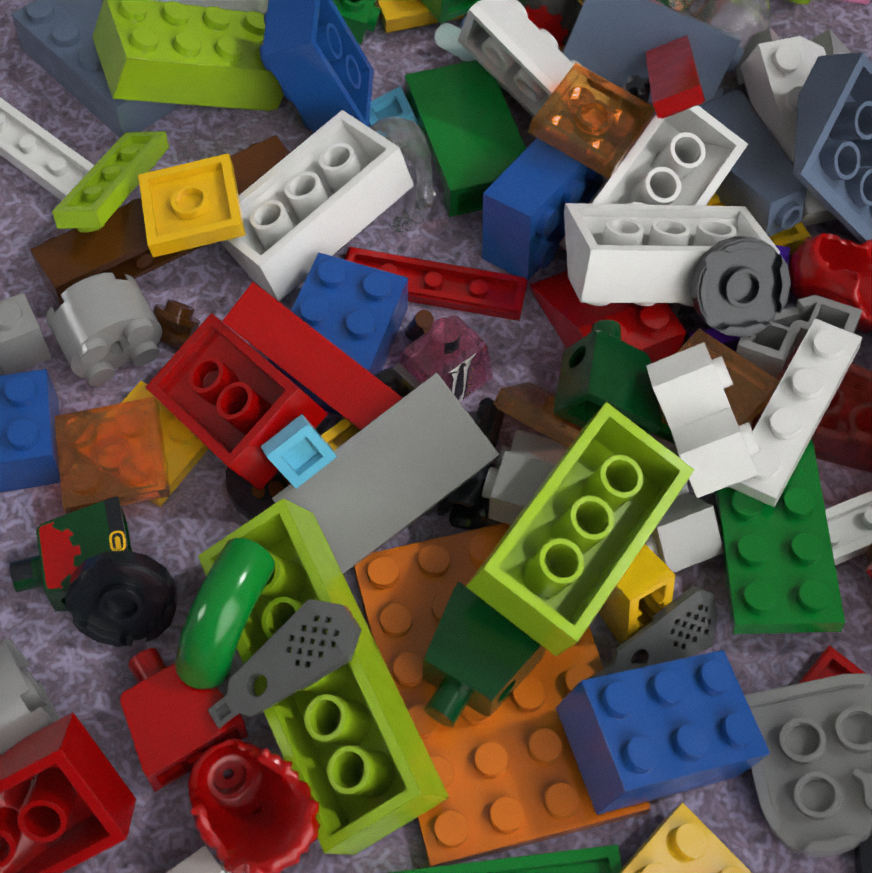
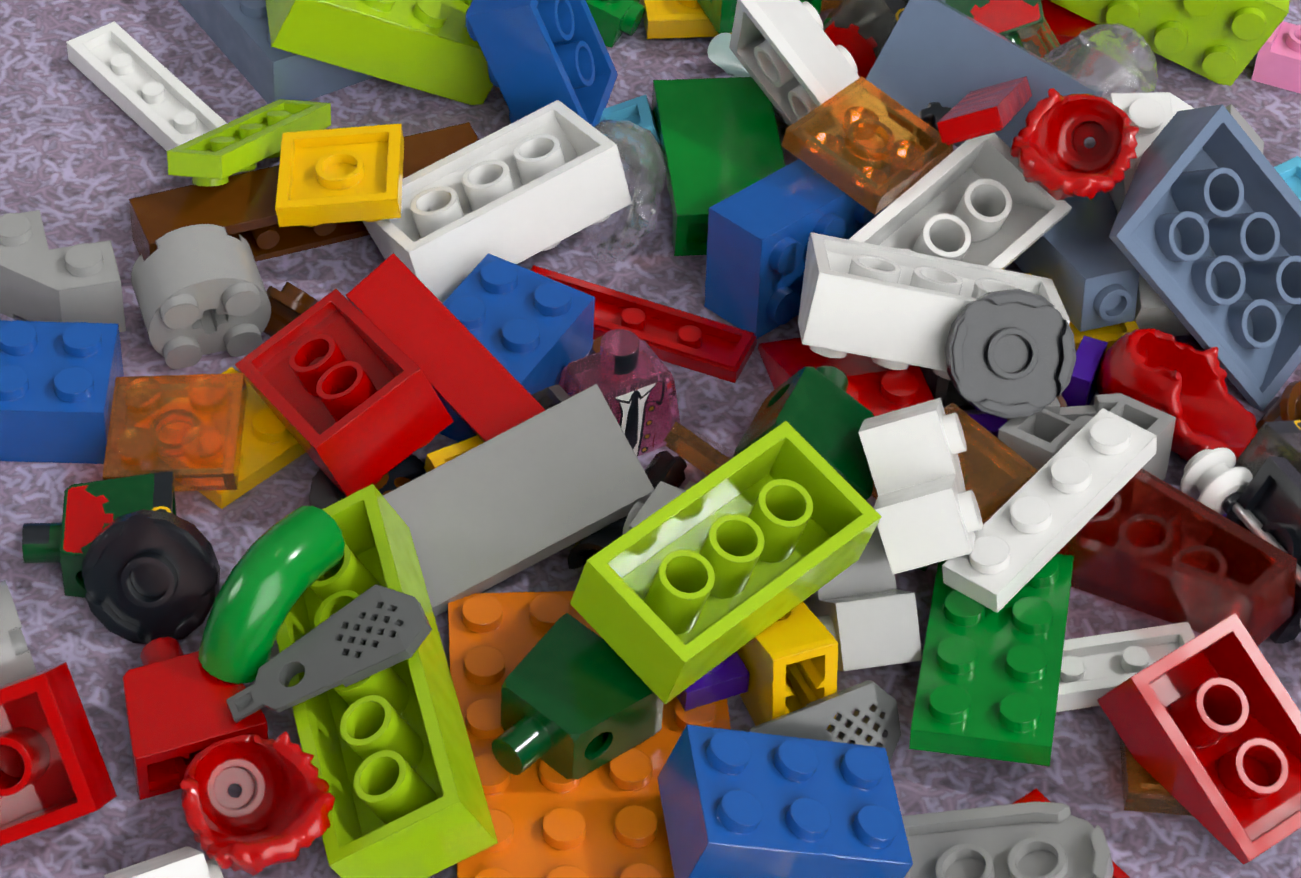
camera: 10 degrees right, 15 degrees down
(298, 451) = (406, 448): medium azure plate -> none
(756, 113) = (1054, 148): none -> red piece

